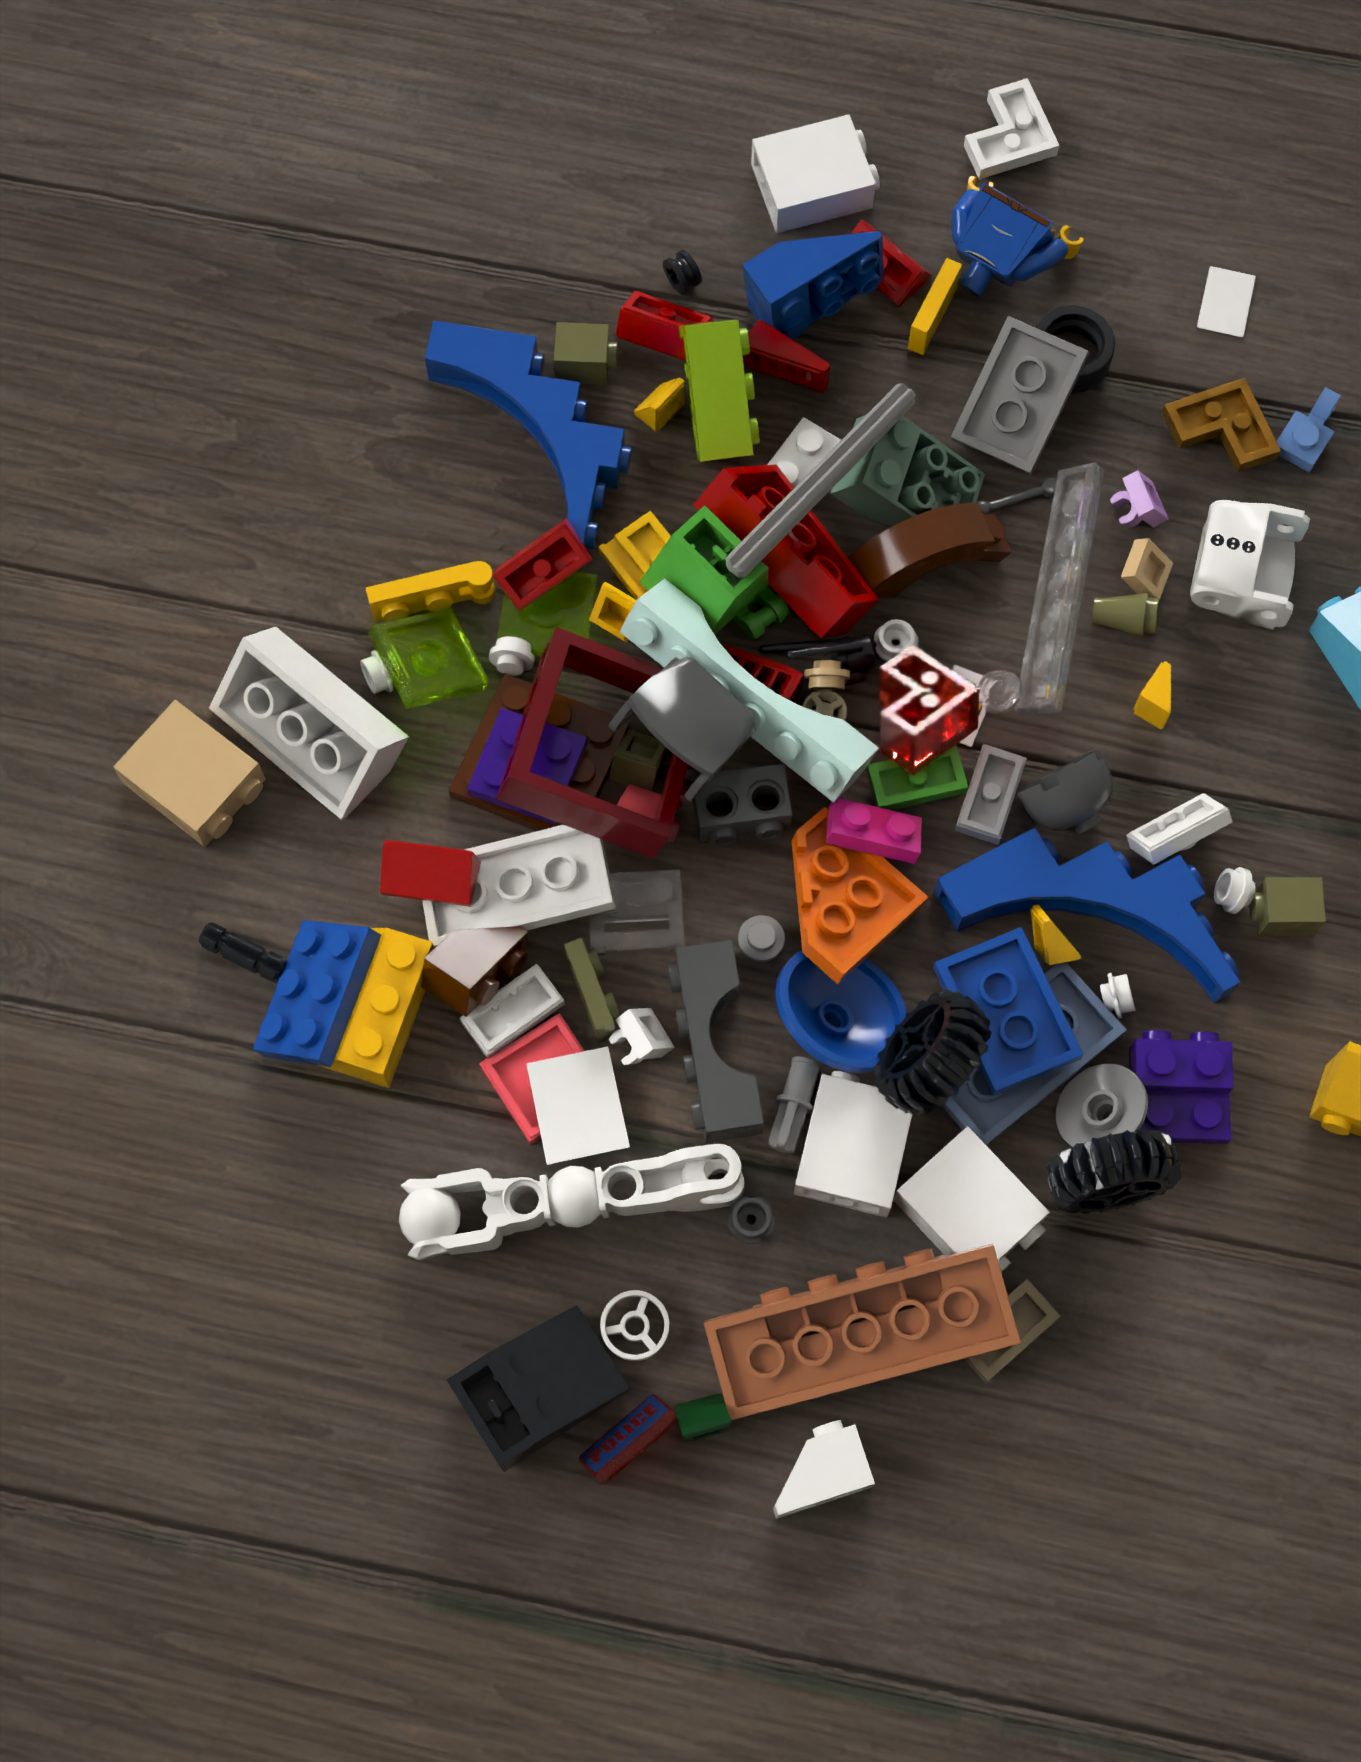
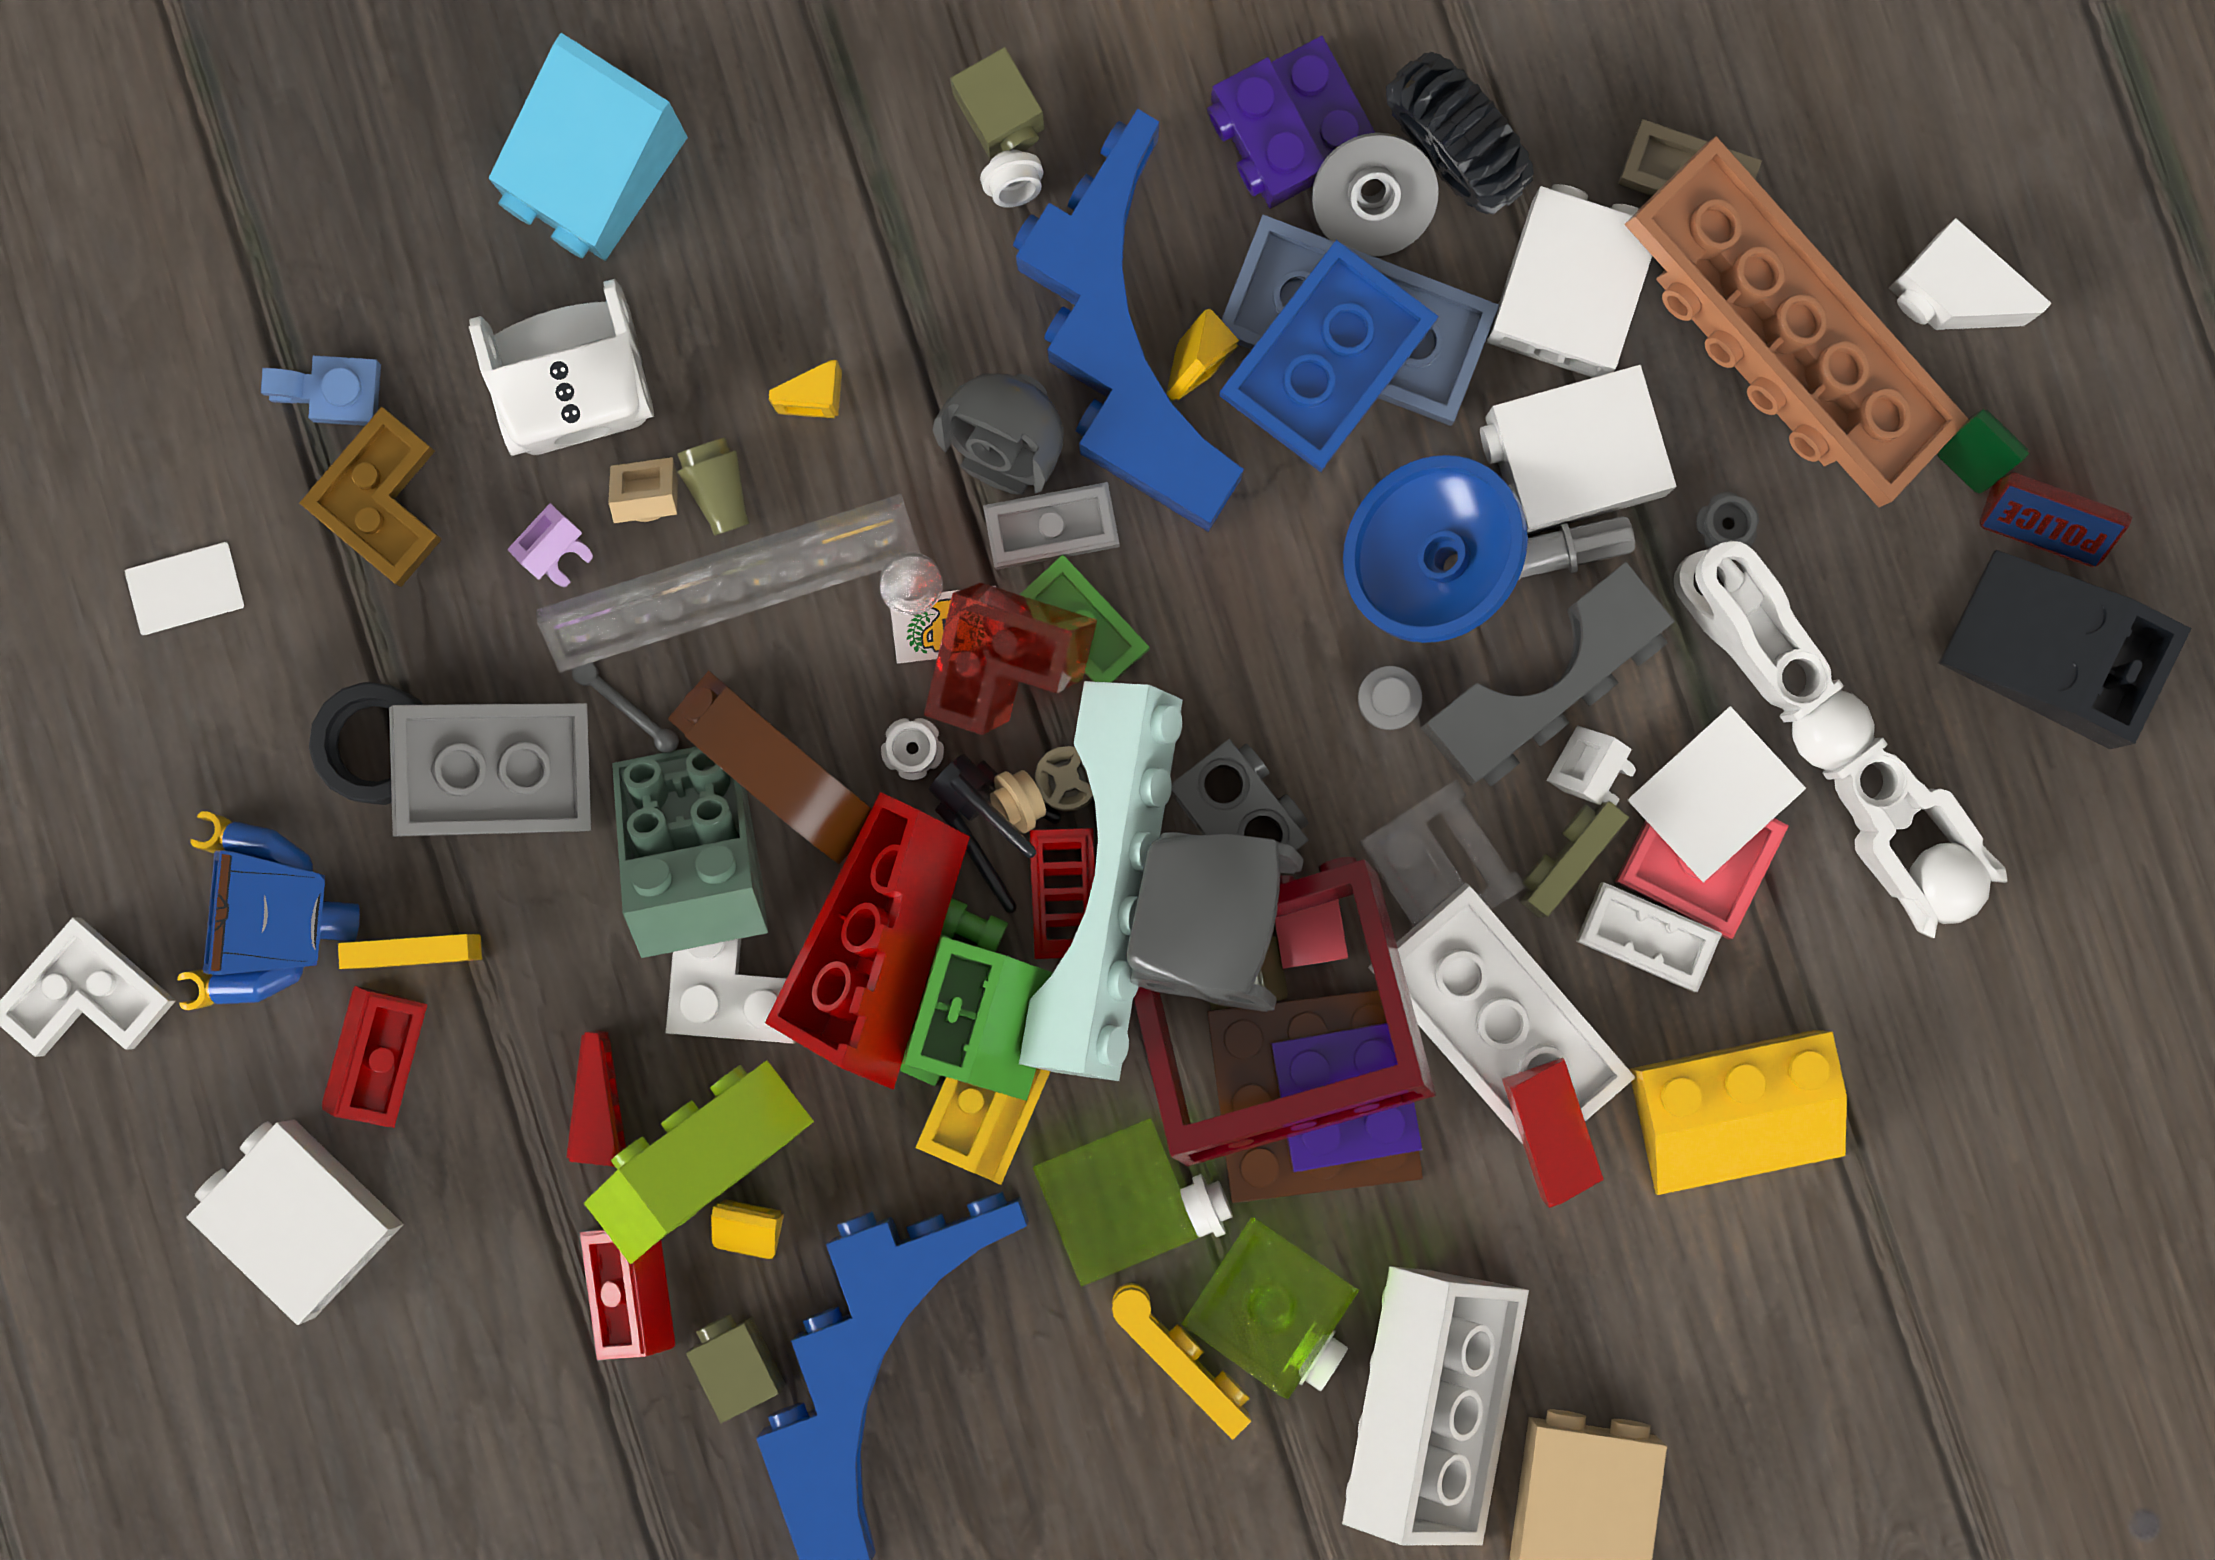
camera: 115 degrees left, 15 degrees up
(242, 952) = (1762, 1301): black axle -> none
(317, 992) = (1770, 1176): blue plate -> none
(472, 965) = (1632, 1013): slope -> none
(542, 565) = (1072, 1238): red slope -> none
(612, 610) = (1081, 1108): yellow slope -> none
(639, 1313) = (1928, 571): white piece -> none
(682, 272) = (541, 1309): black bush -> none
(811, 278) = (482, 1134): blue slope -> none
(820, 480) = (787, 935): light grey axle -> none
(846, 900) = (1288, 620): orange plate -> none
(874, 830) = (1182, 636): dark pink plate -> none
(932, 1052) = (1451, 403): black gear -> none
(1117, 994) = (1220, 248): white plate -> none
(1179, 828) = (970, 280): white plate -> none

